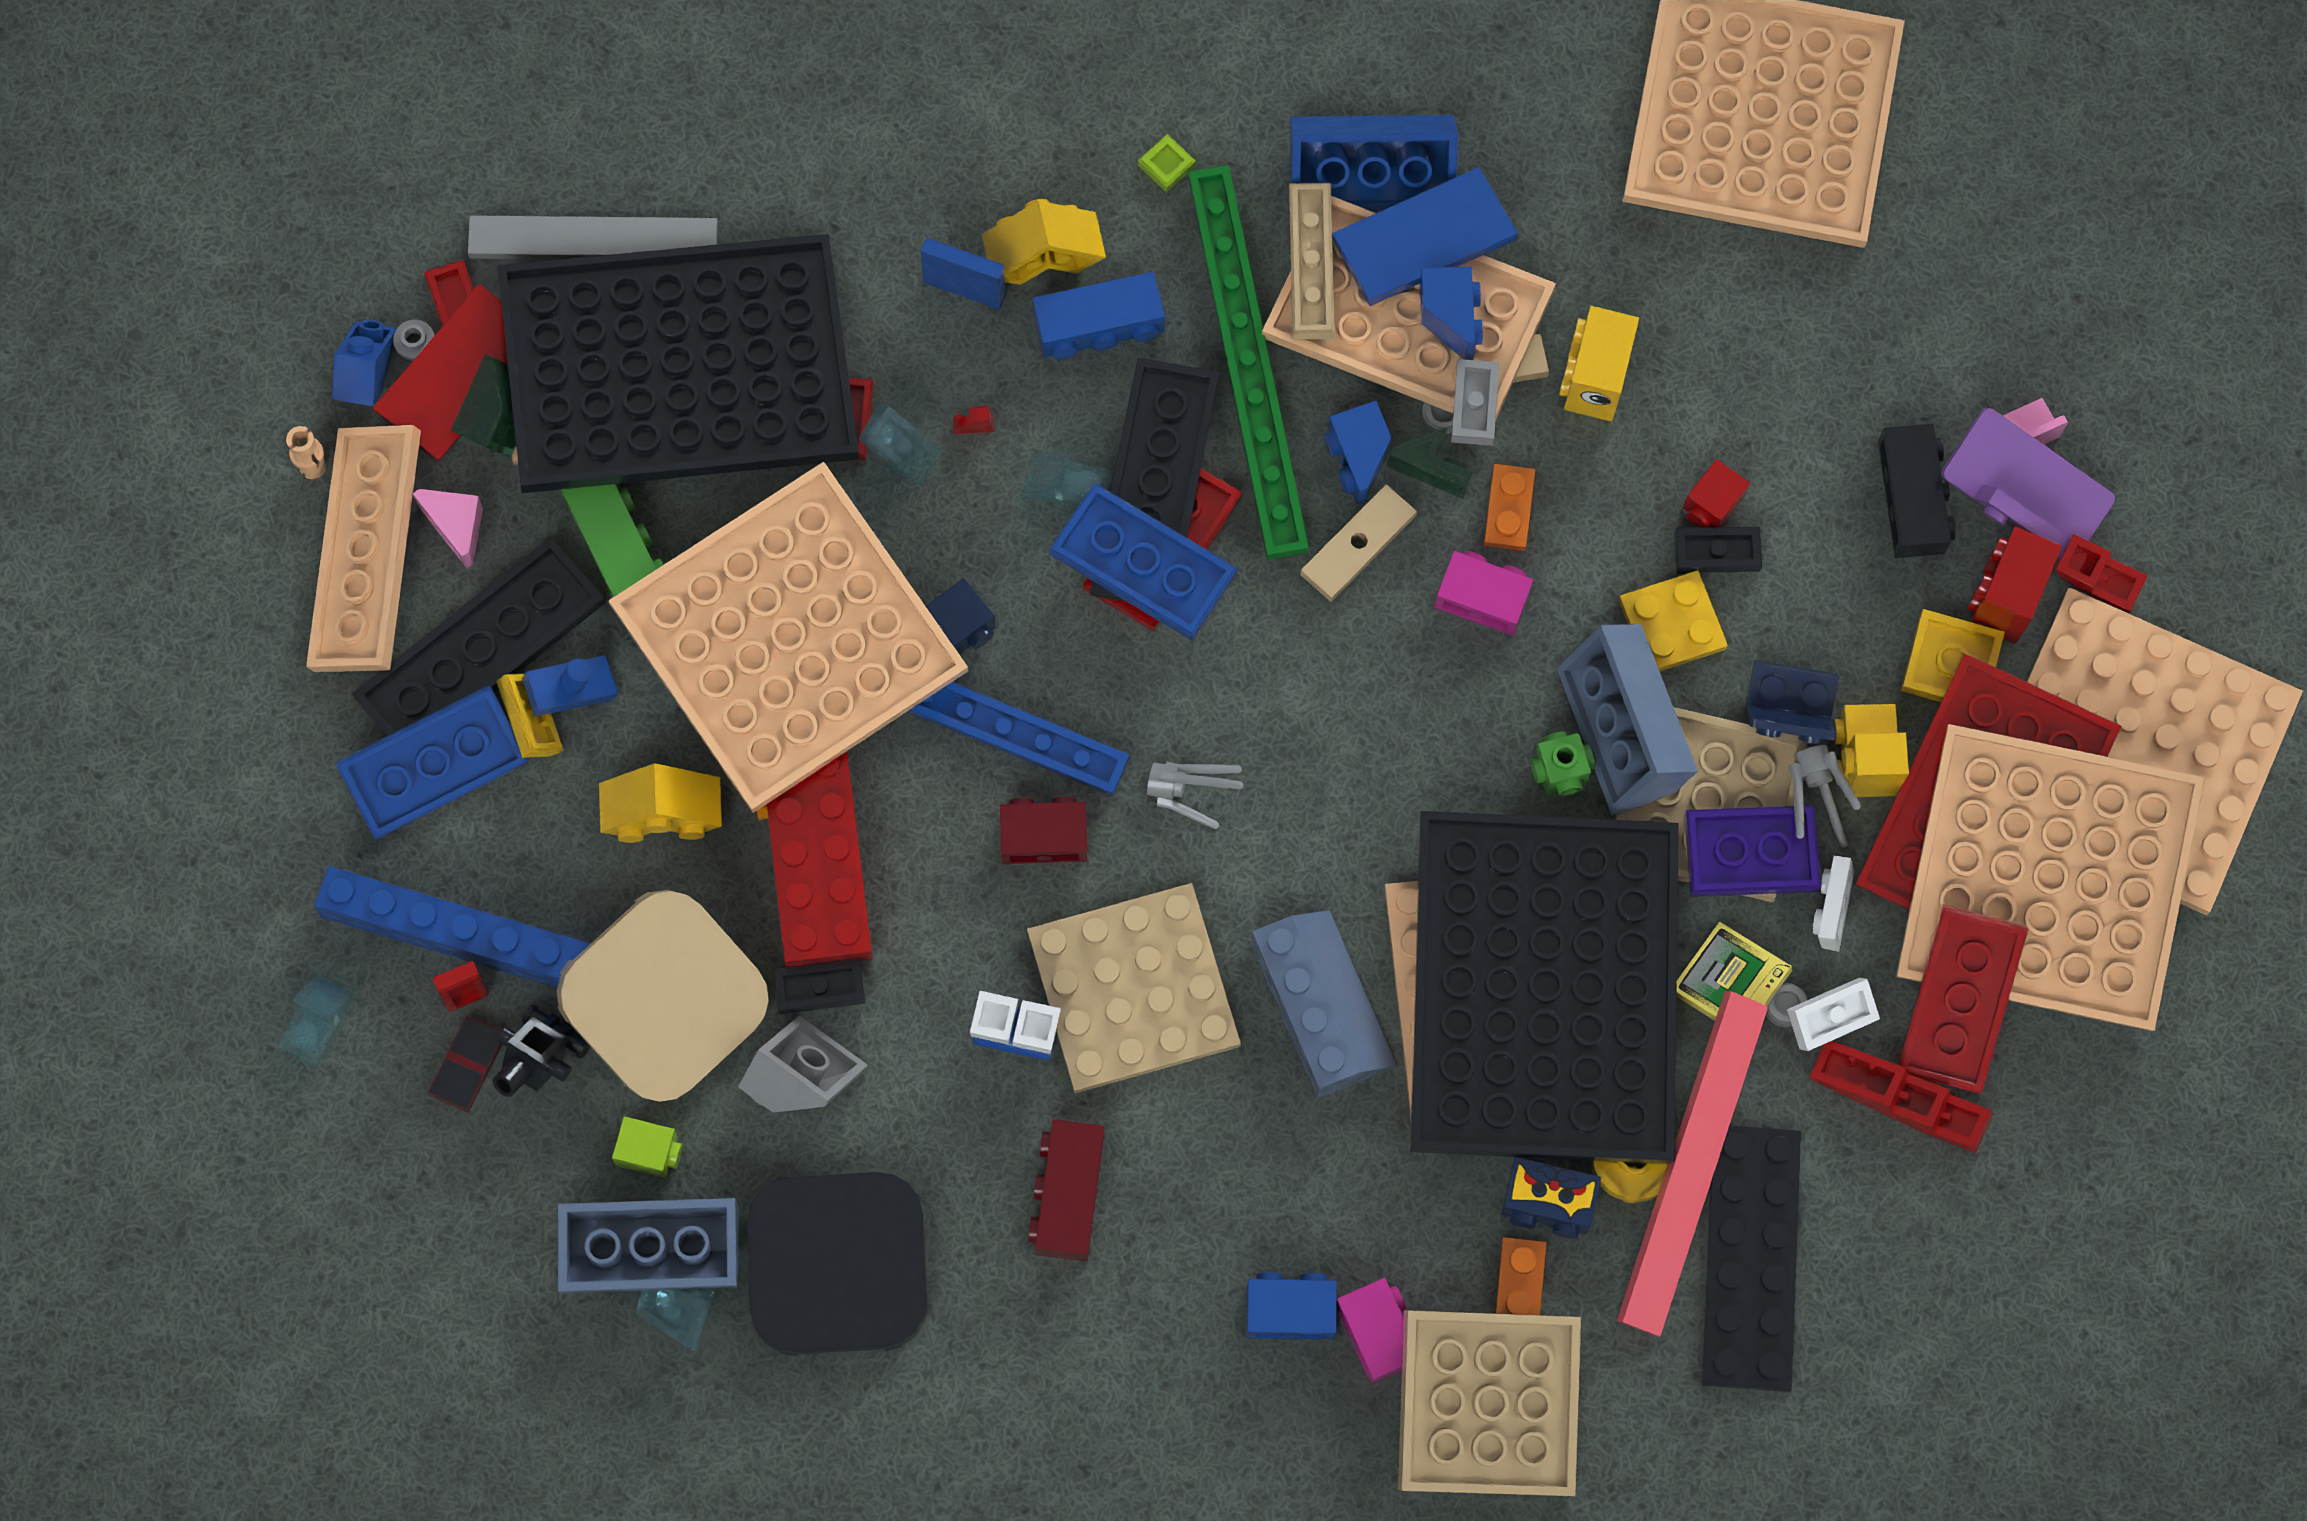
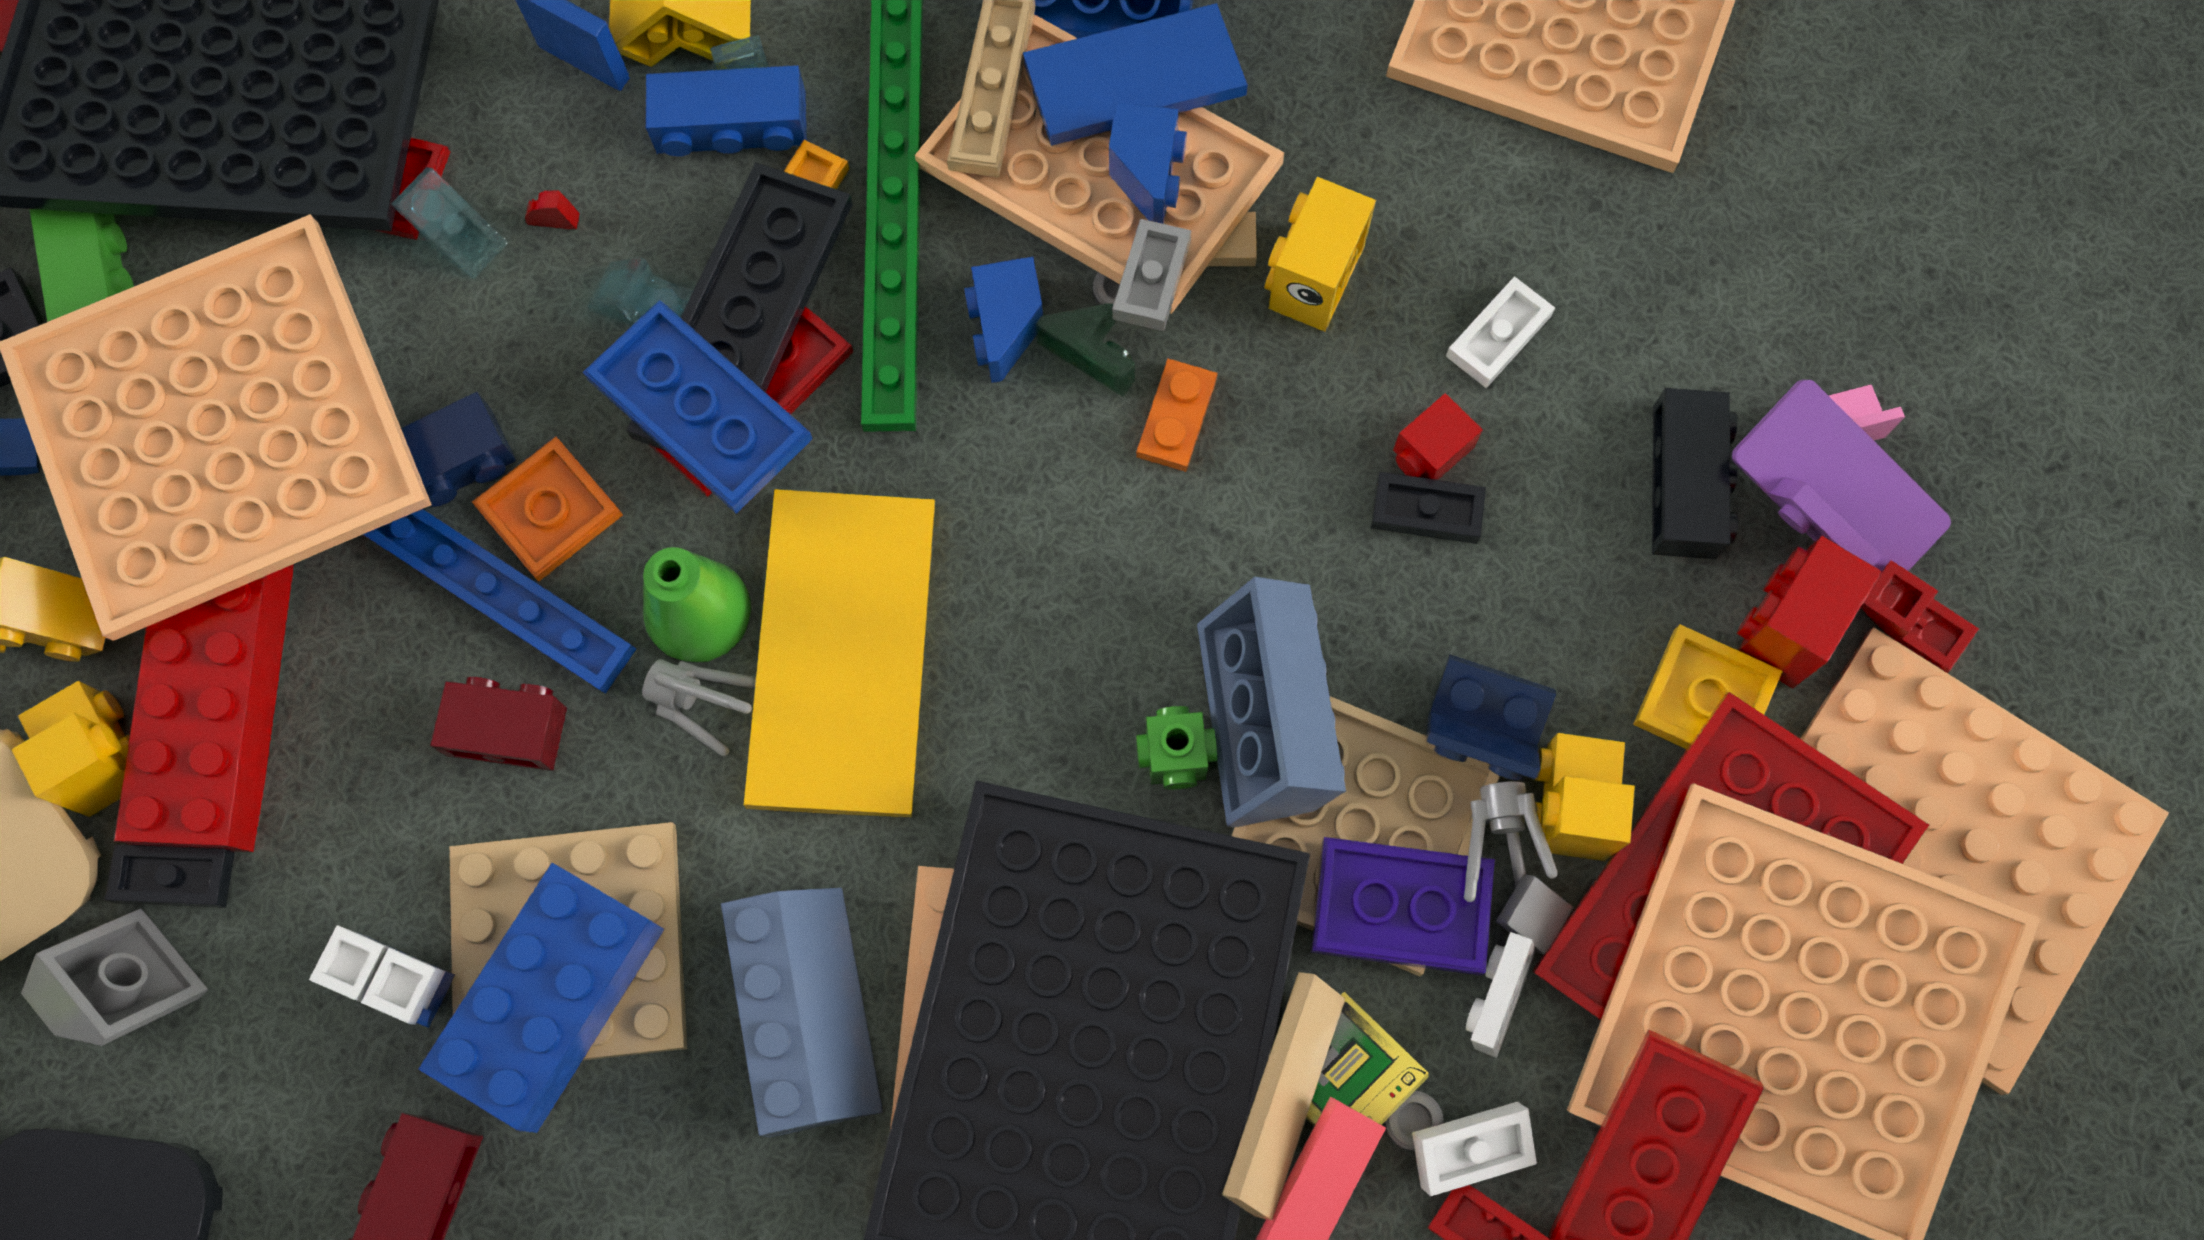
camera: 15 degrees right, 0 degrees up
(731, 898) = (75, 749): none -> yellow brick
(1031, 661) = (547, 508): none -> orange tile
(1101, 270) = (740, 54): none -> clear light blue tile
(1138, 1019) = (541, 1000): none -> blue brick
(1168, 719) = (693, 605): none -> bright green cone
(1179, 349) = (818, 165): none -> light orange tile
(1290, 734) = (841, 655): none -> yellow tile
(1375, 525) = (1007, 411): tan tile -> none
(1484, 592) = (1121, 512): dark pink brick -> none
(1675, 620) = (1358, 588): yellow plate -> none
(1691, 996) = (1284, 1096): none -> tan tile
(1749, 401) = (1500, 332): none -> white plate
(1849, 840) = (1535, 913): none -> light grey tile

